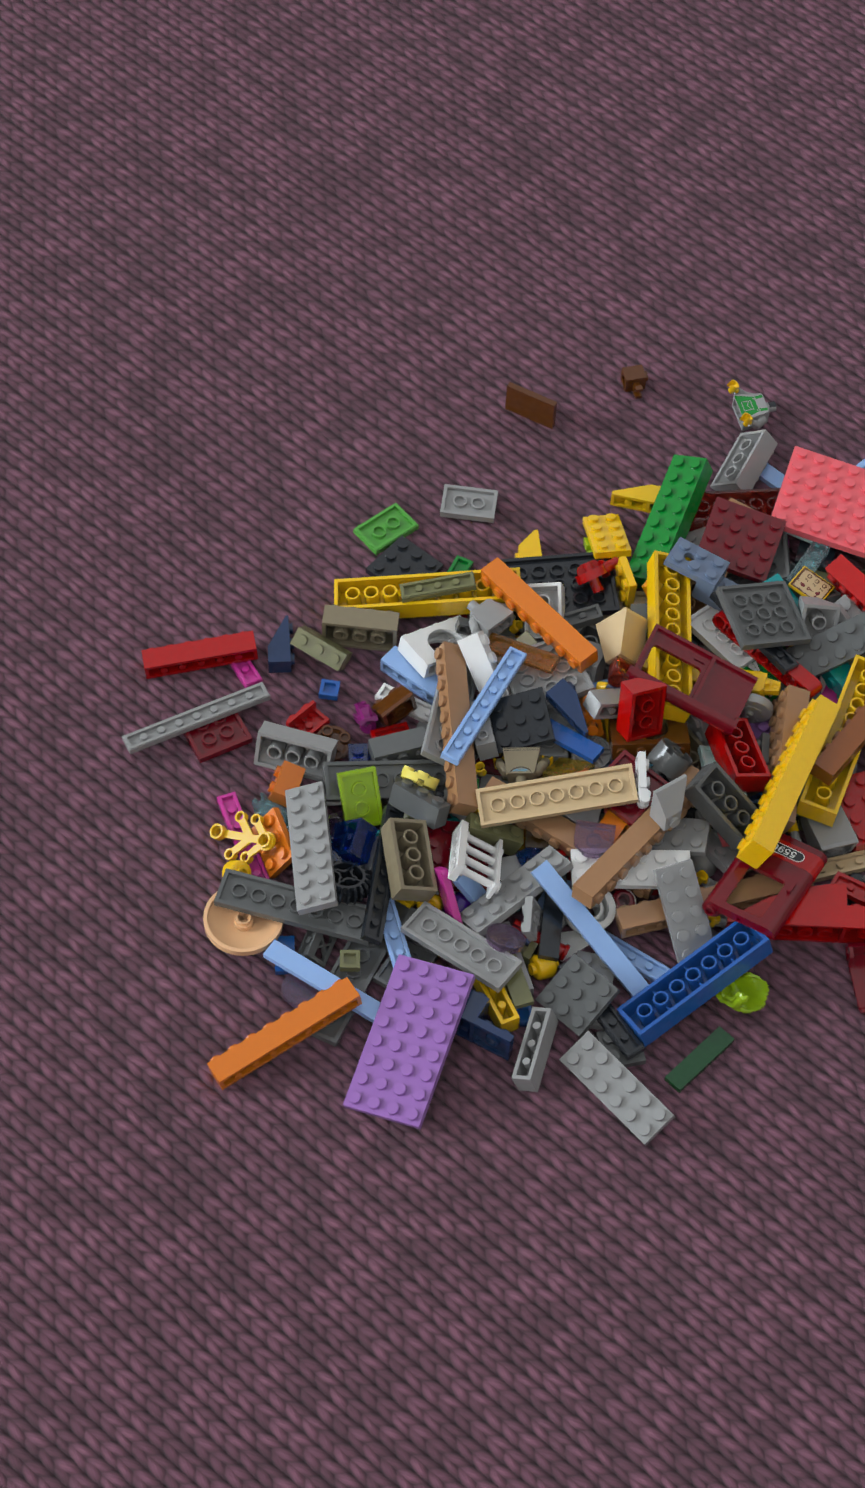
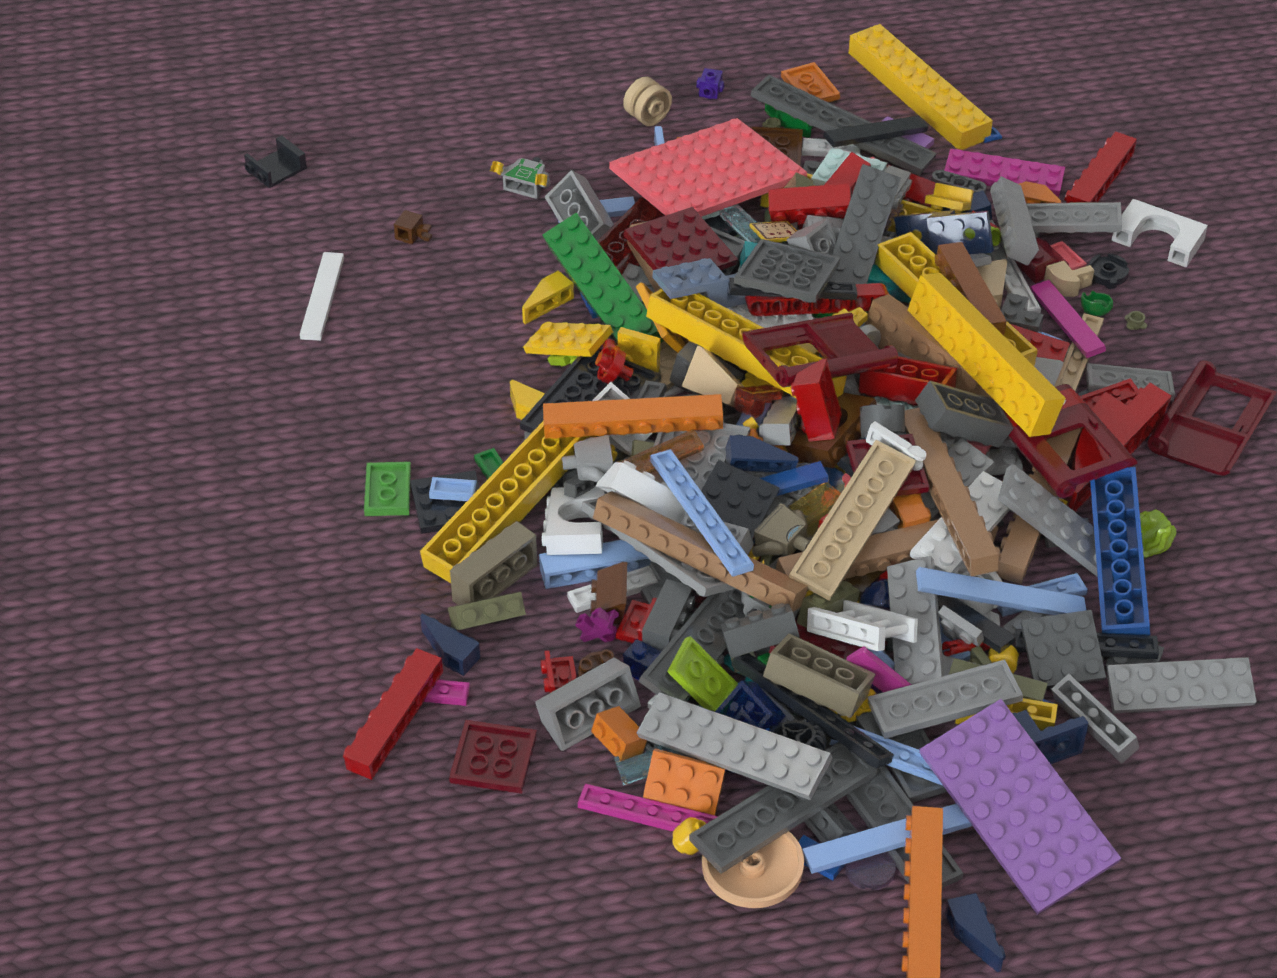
camera: 50 degrees left, 10 degrees down
(196, 717) = (469, 762): light grey tile -> none
(245, 838) = (659, 800): yellow plant -> none
(299, 1069) = (970, 925): none -> dark blue slope
(329, 689) = (535, 637): blue plate -> none
(350, 960) = (879, 801): olive plate -> none
(409, 561) = (452, 489): none -> light blue tile
(420, 778) = (735, 609): light yellow plate -> none
(437, 587) = (518, 475): olive tile -> none
(468, 503) = (424, 412): light grey plate -> none
(505, 938) = (967, 658): clear purple tile -> none
(524, 376) = (322, 296): none -> white tile
(531, 405) = (367, 304): reddish brown tile -> none
(593, 838) = (917, 524): clear purple tile -> none
(621, 266) = (279, 165): none -> black panel
(668, 803) = (945, 441): light grey slope -> none
(699, 1059) = (1190, 611): dark green tile -> none

